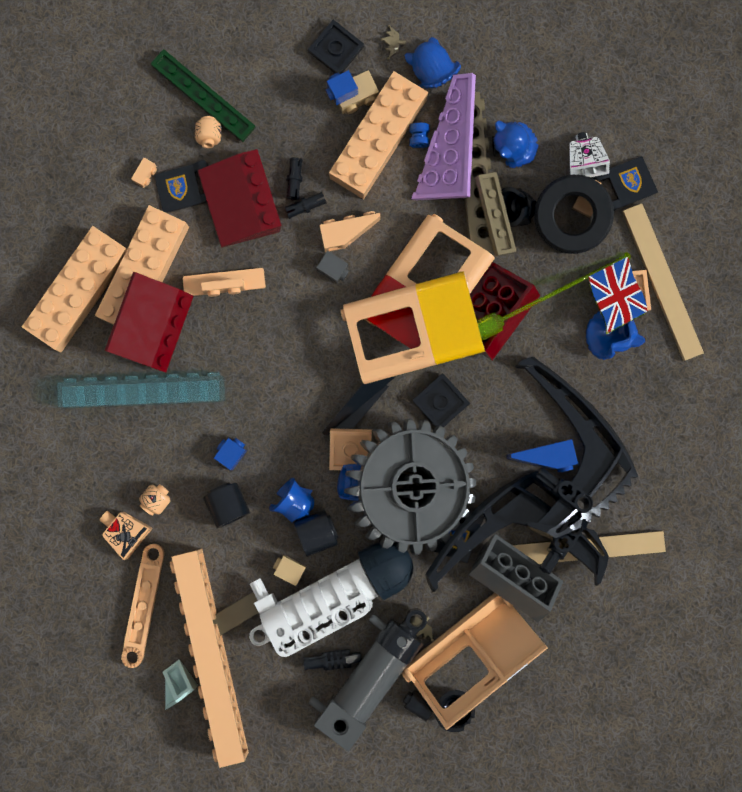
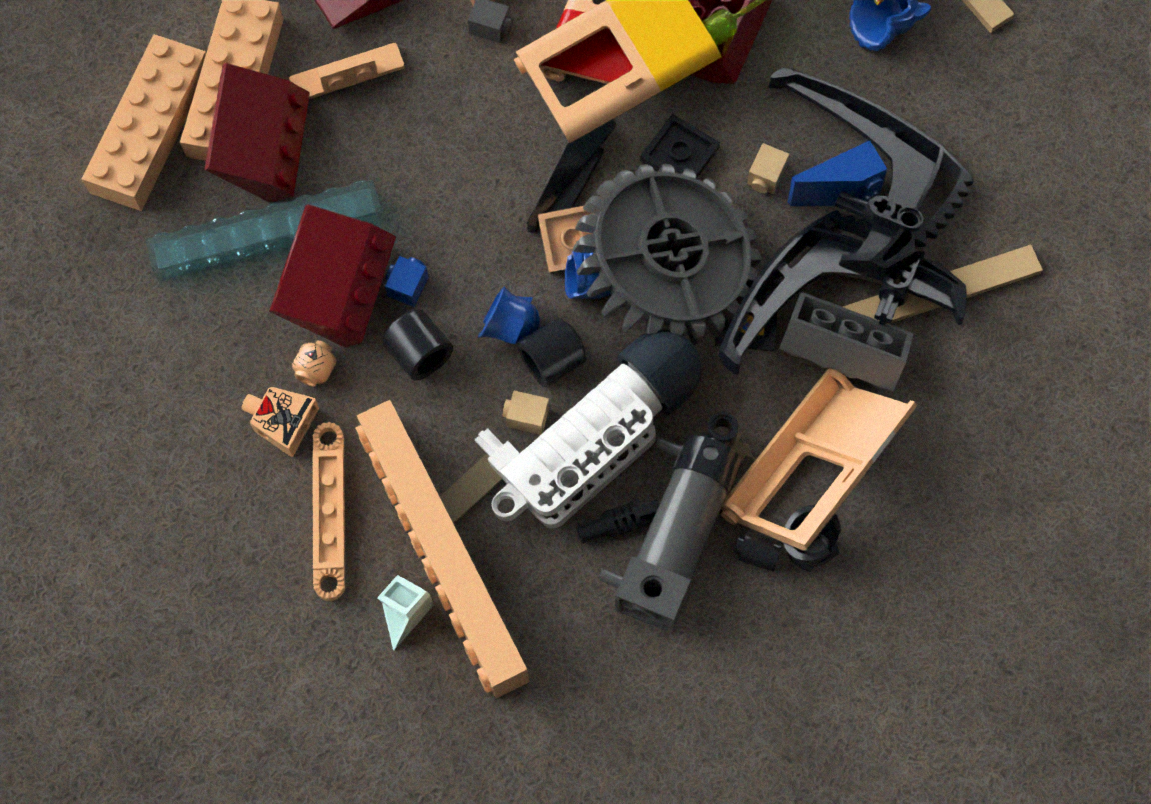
camera: 10 degrees left, 15 degrees down
(179, 443) = (333, 275): none -> dark red slope
(497, 431) = (767, 169): none -> tan brick

